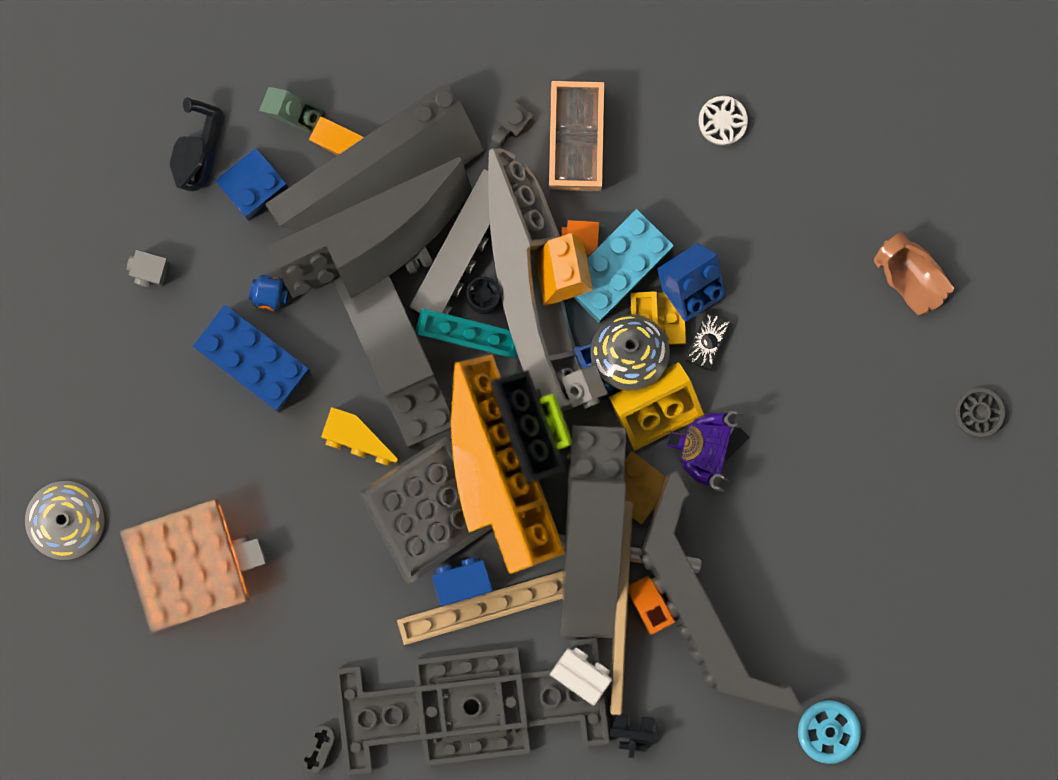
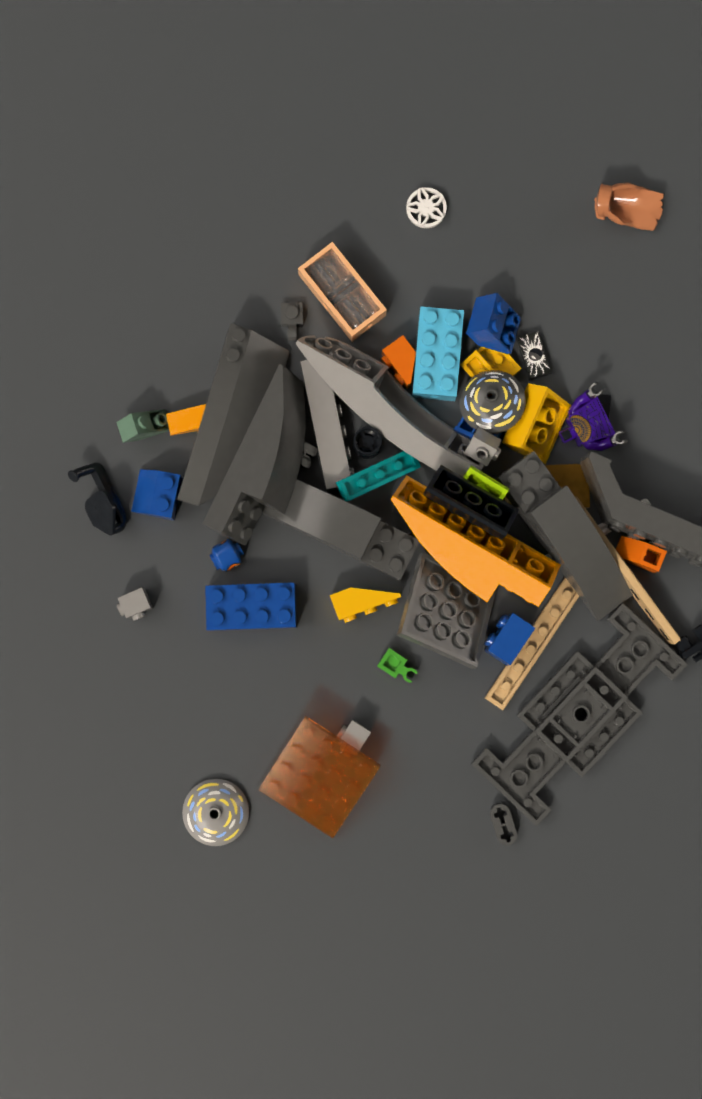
camera: 35 degrees left, 0 degrees up
(338, 519) = (394, 664): none -> bright green plate
(563, 269) = (406, 383): light orange slope -> none
(581, 676) = (635, 635): white brick -> none

